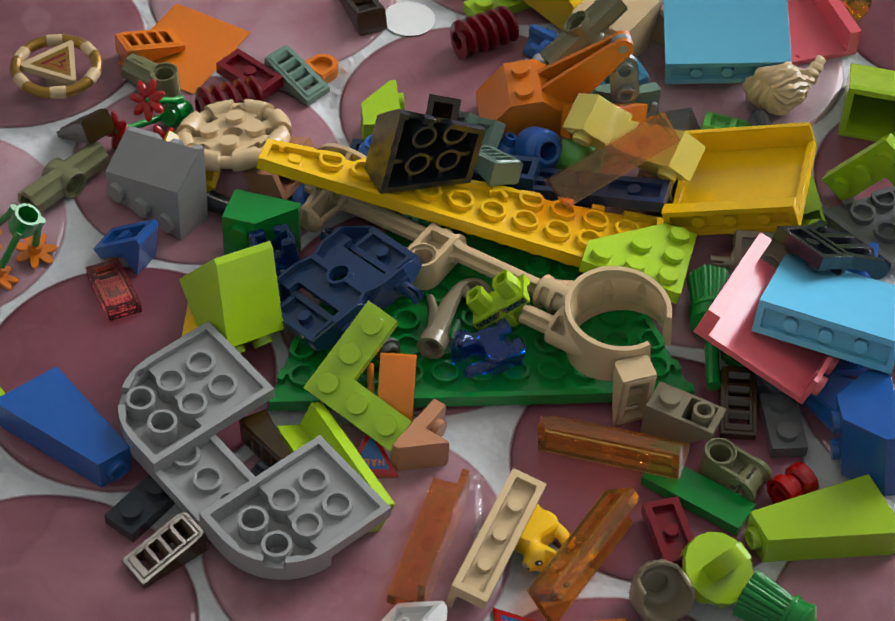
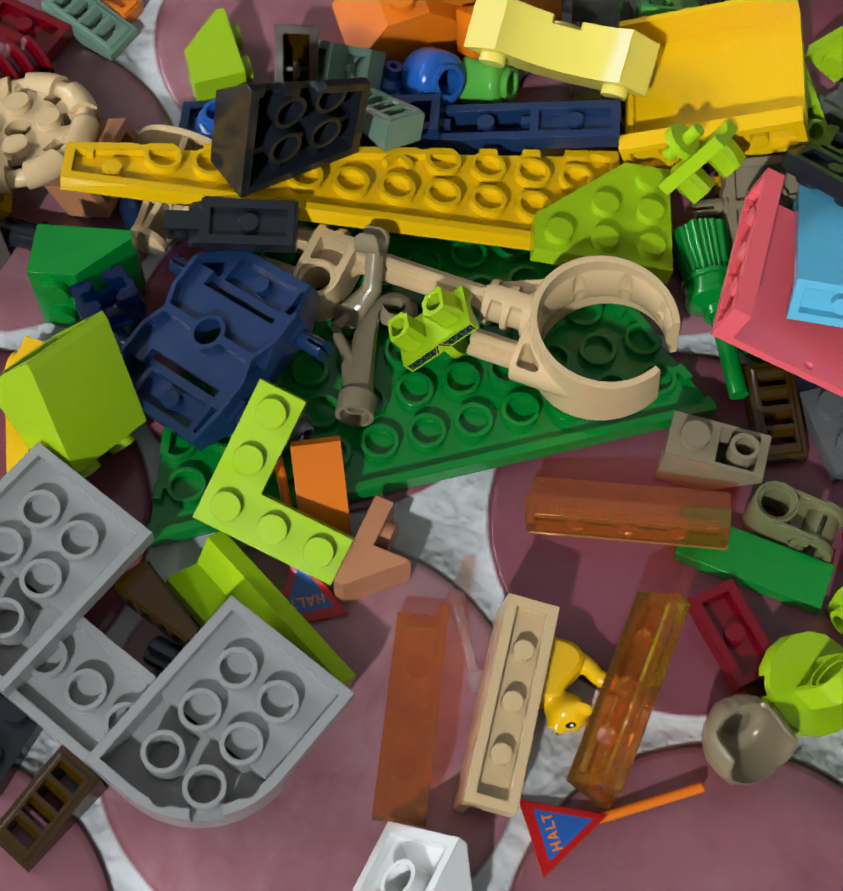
camera: 10 degrees left, 15 degrees up
(373, 211) = (236, 225): none -> black hinge
(467, 239) = (374, 244): none -> dark tan piece
(490, 346) = (436, 400): clear blue animal -> none
(612, 159) = (543, 85): clear orange panel -> none
(632, 384) = (641, 427): tan slope -> none
(727, 217) = (716, 149): none -> lime hips

